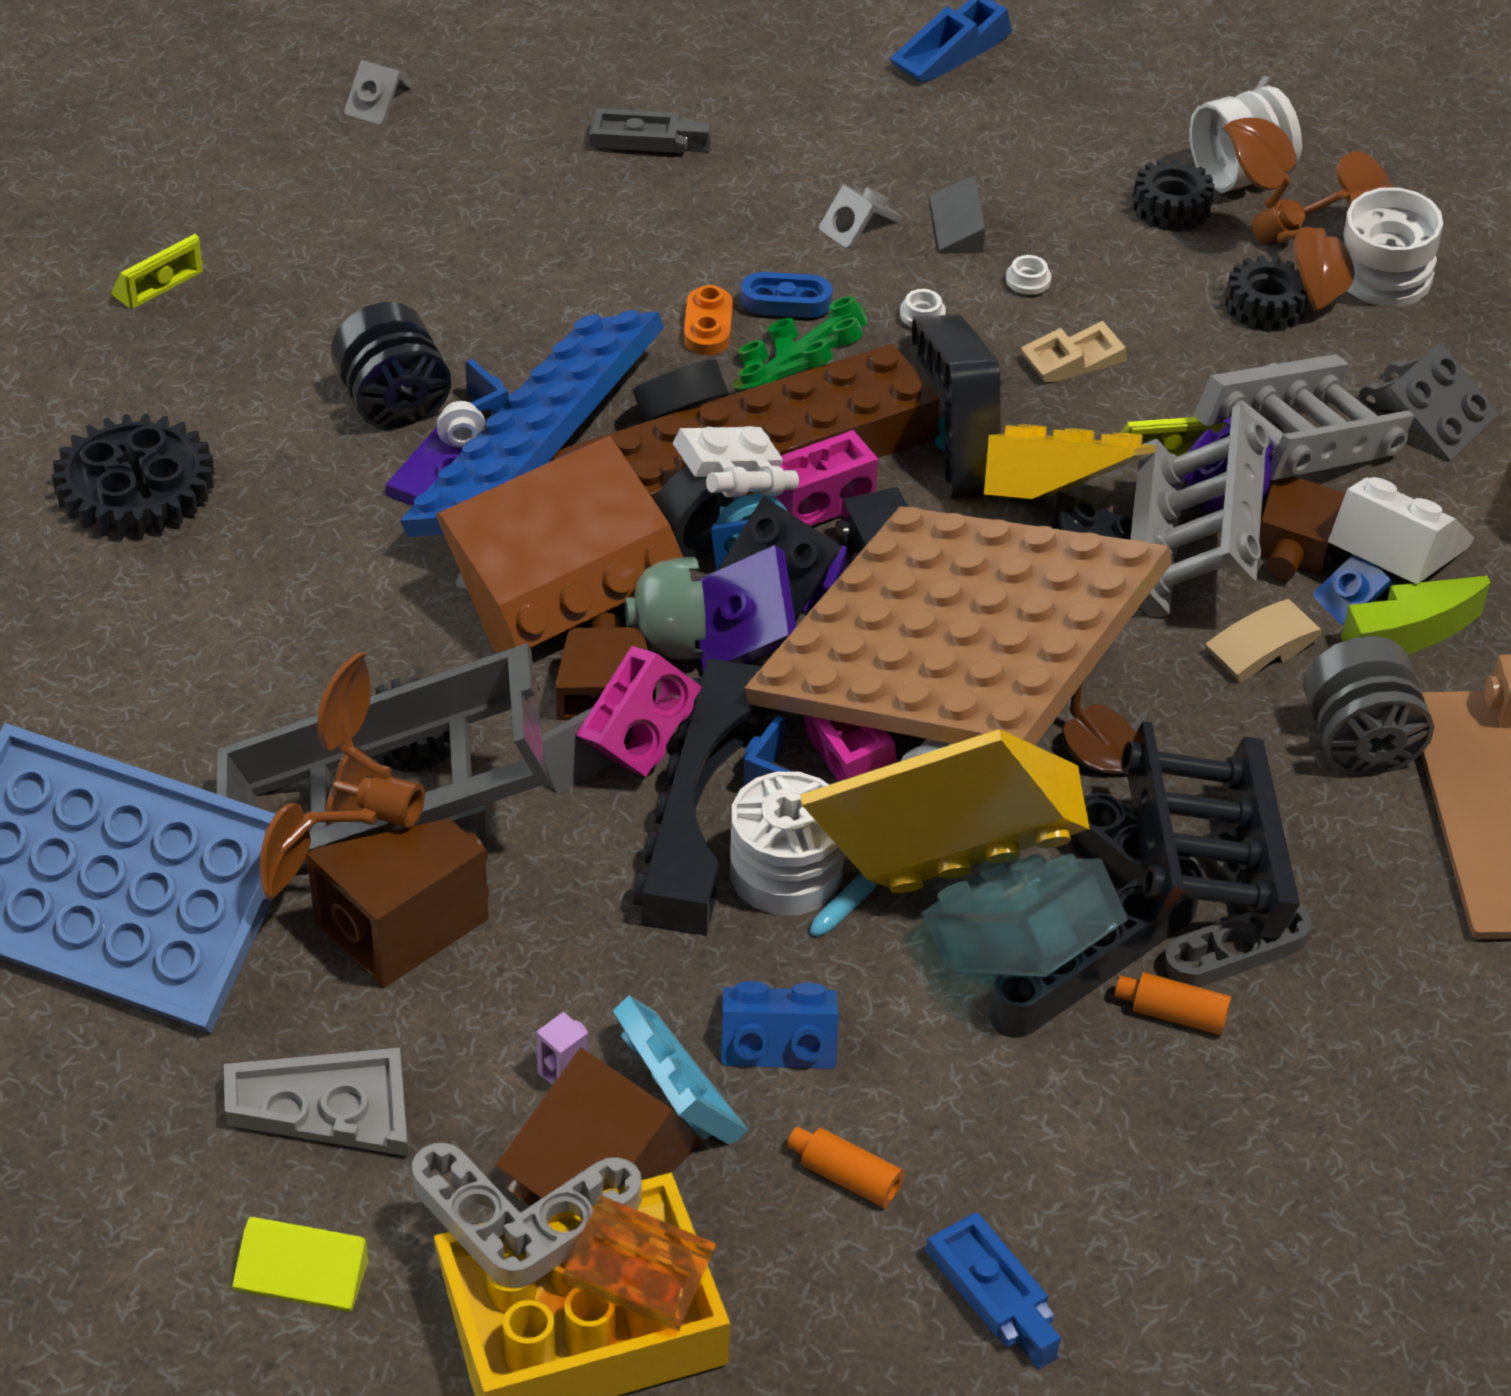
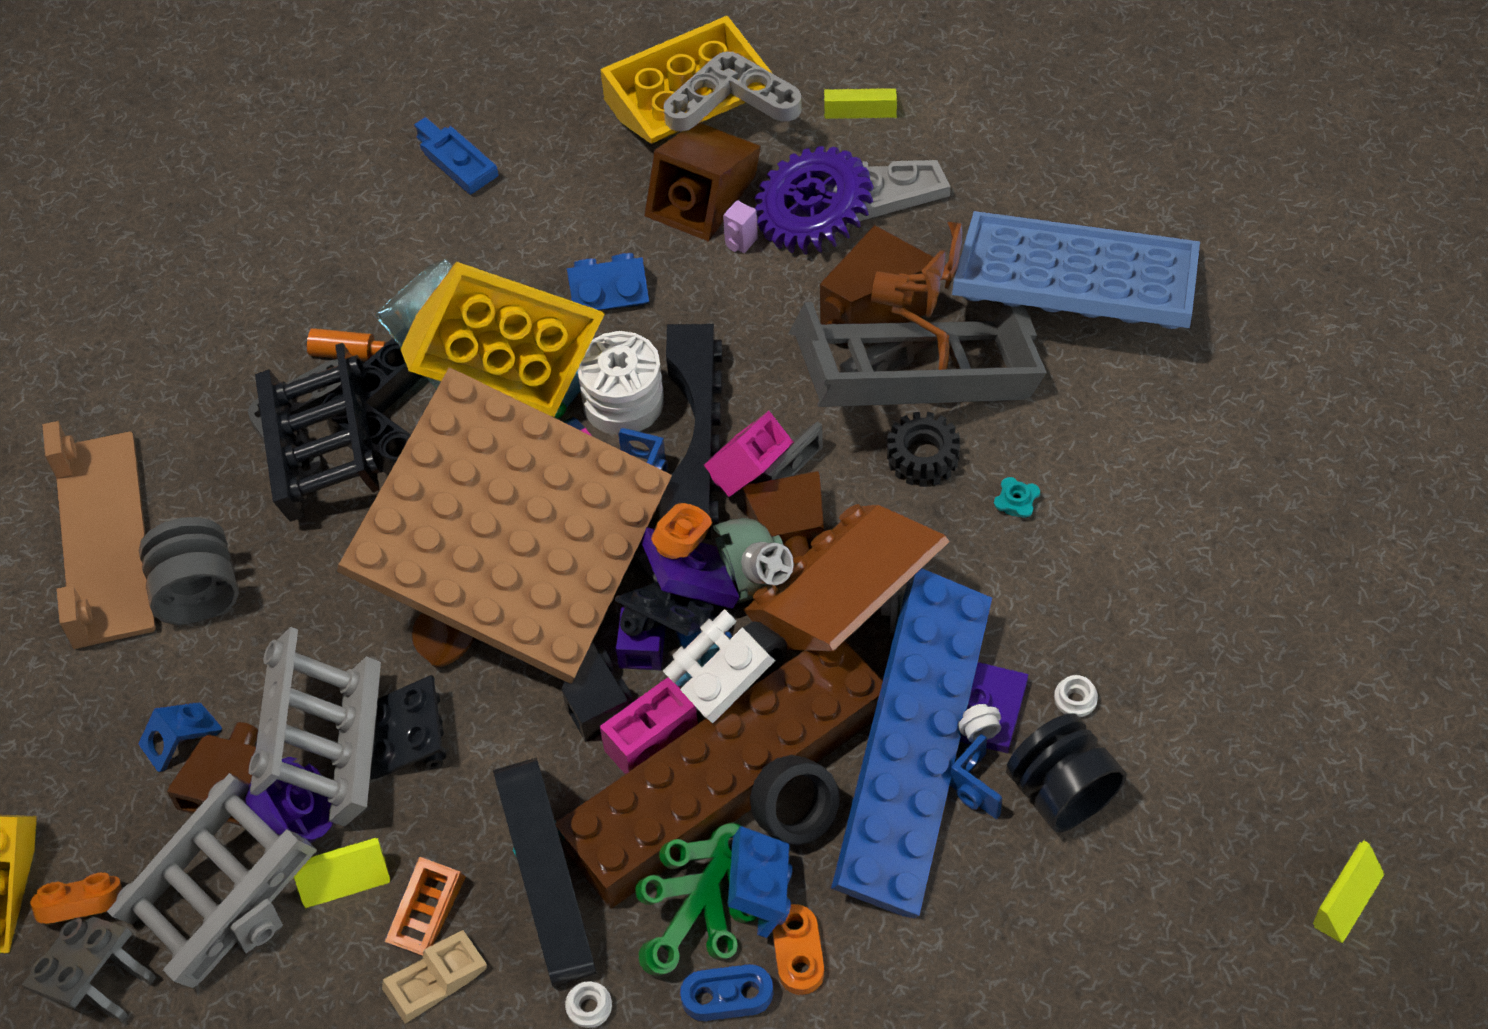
camera: 175 degrees right, 10 degrees up
(103, 488) = (1243, 638): black gear -> none
(316, 658) = (1016, 506): none -> teal plate
(342, 461) = (1079, 685): none -> white plate
(438, 1091) = (817, 209): none -> dark purple gear
(639, 1263) = (654, 65): clear orange plate -> none
(653, 549) = (777, 563): none -> light grey wheel
(677, 1073) = (663, 224): medium azure wing -> none
(736, 329) = (760, 878): none -> blue bracket
(745, 615) = (681, 531): none -> orange plate
(847, 1165) = (550, 207): orange cylinder -> none
(1038, 465) = (428, 754): yellow slope -> none
(1064, 411) = (453, 882): none -> orange slope
(1262, 636) = (246, 670): tan slope -> none
(1397, 531) = (129, 768): white slope -> none
(1419, 612) = (135, 694): lime slope -> none
(1454, 454) = (77, 899): none -> orange plate

